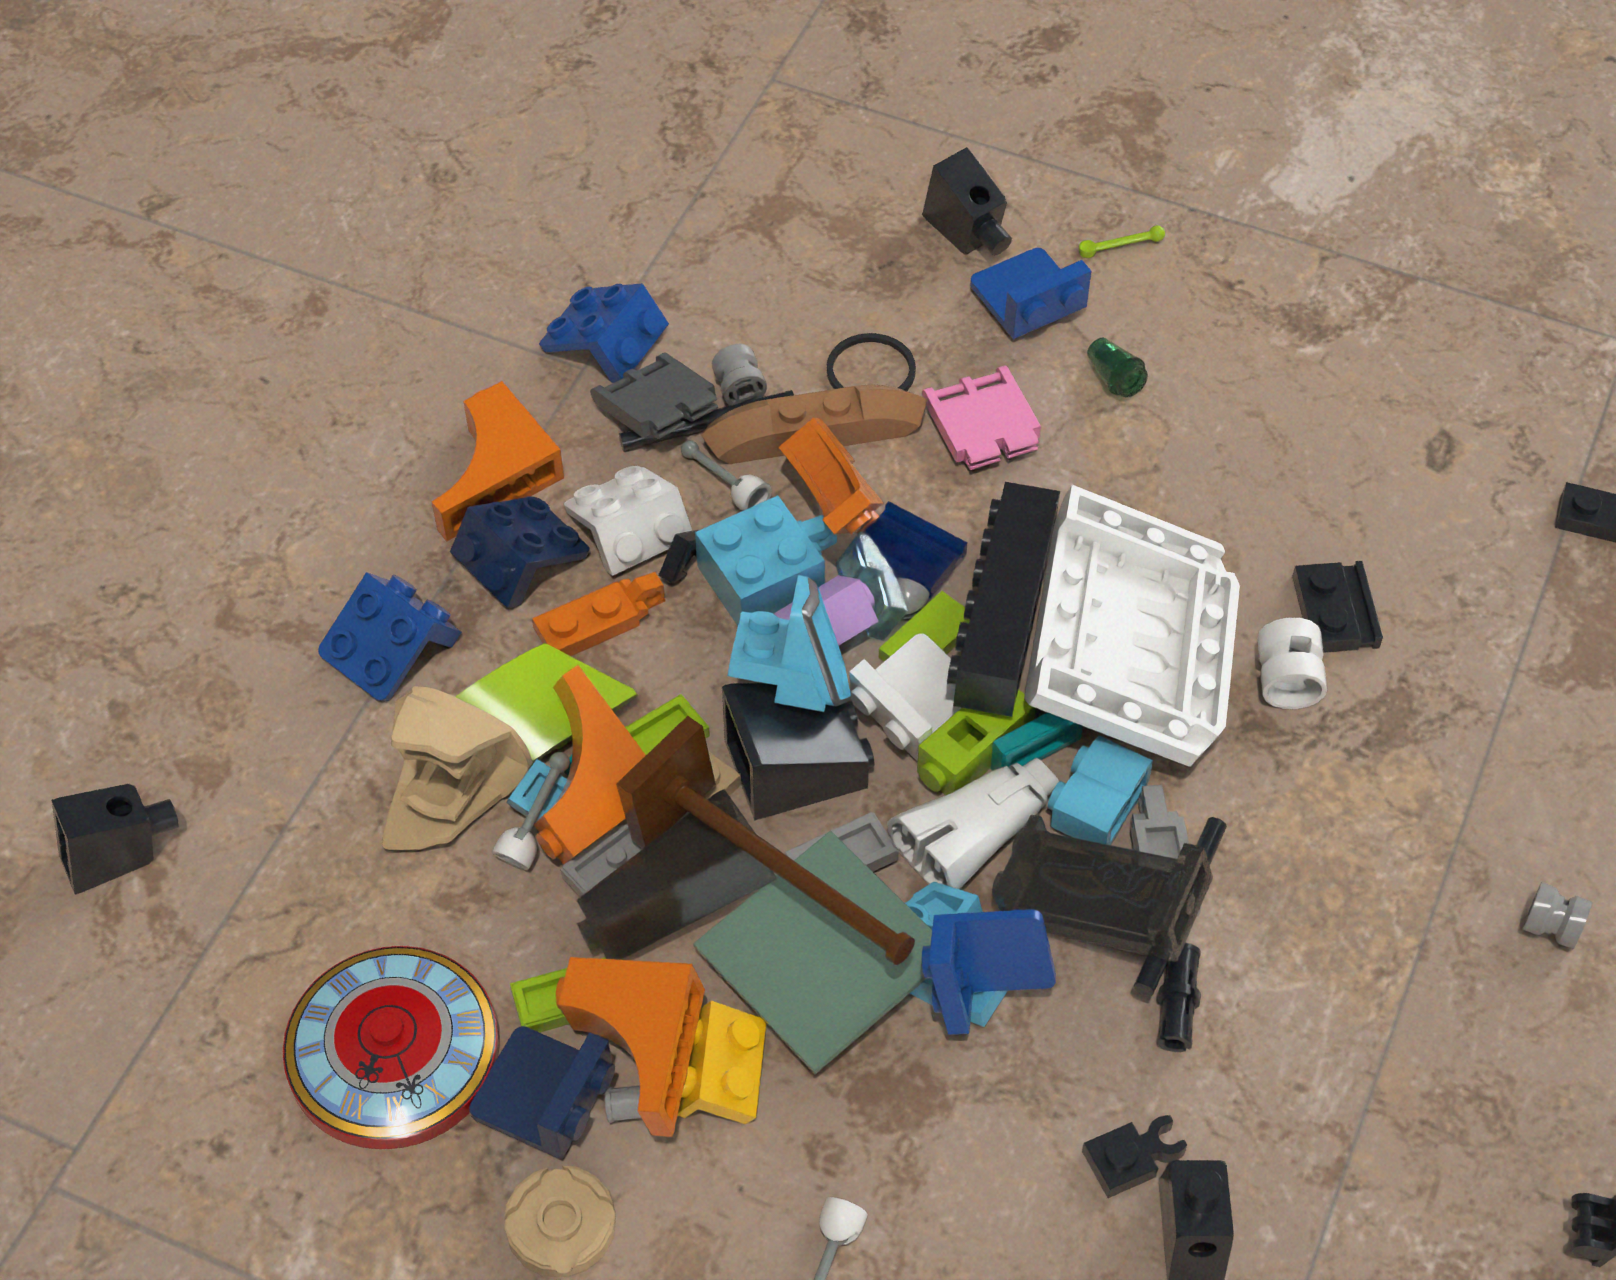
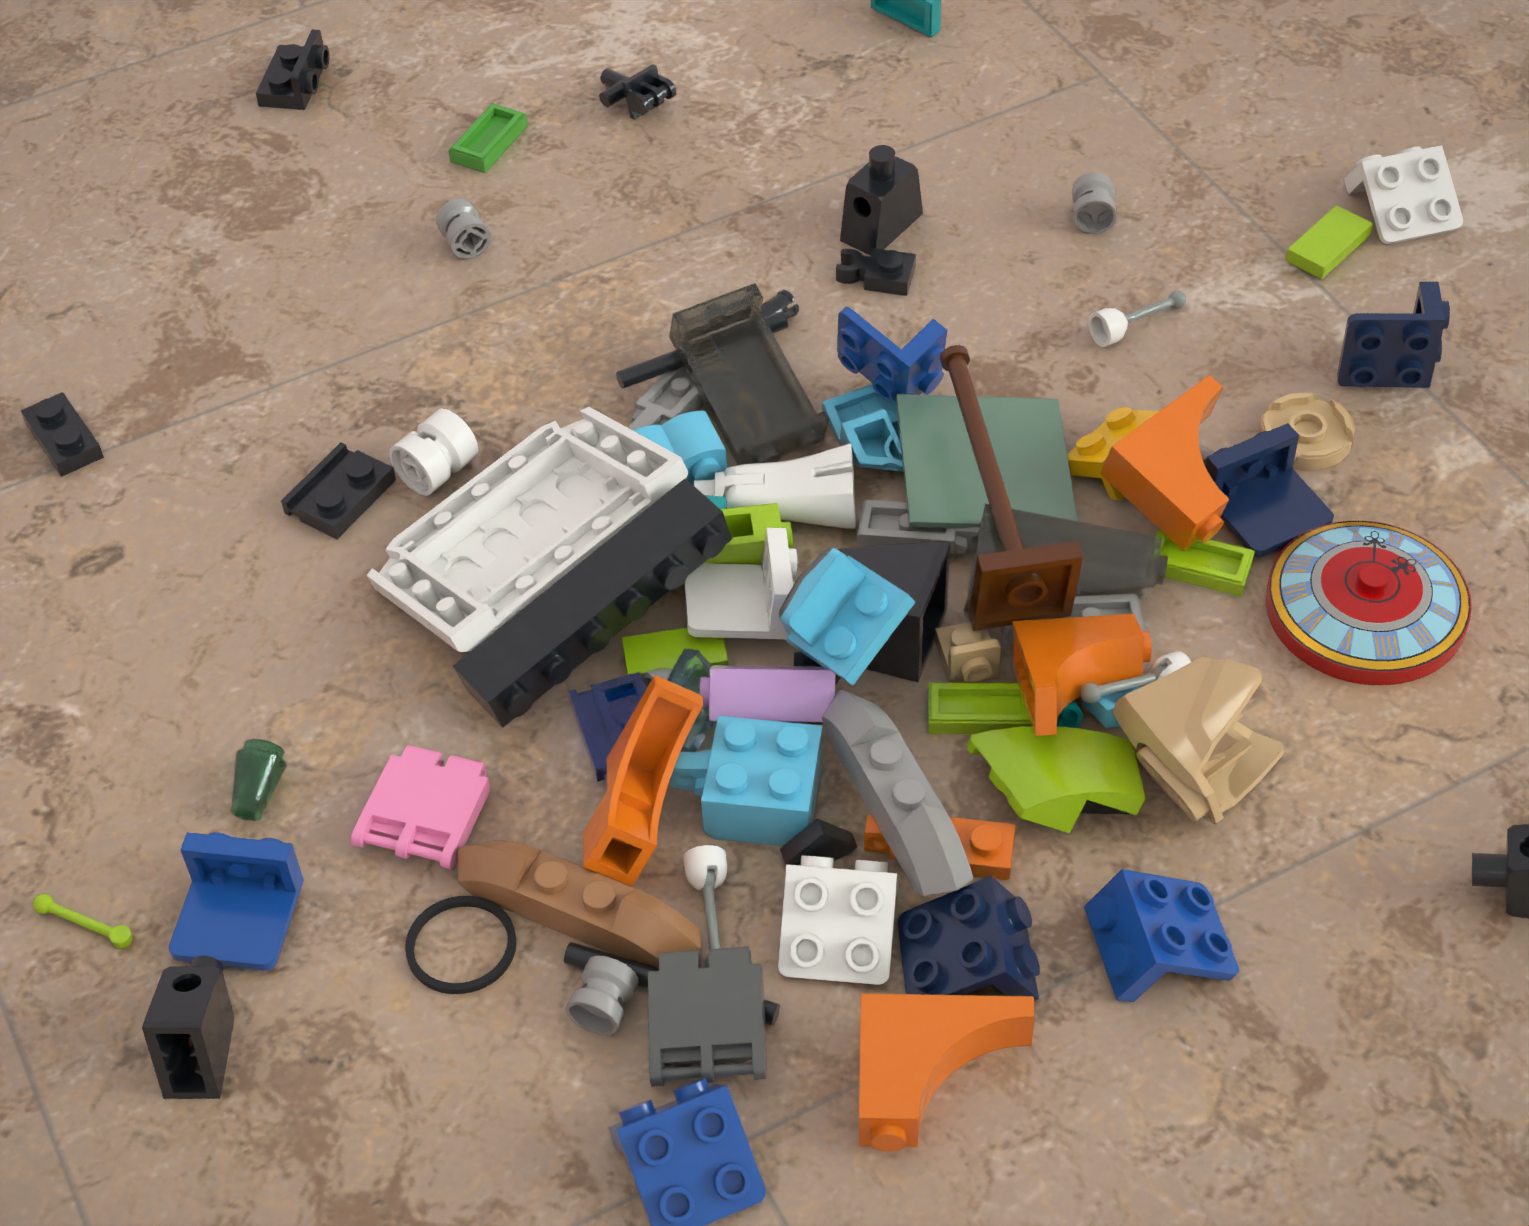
camera: 140 degrees left, 5 degrees down
(643, 590) = (897, 795): none -> light grey brick

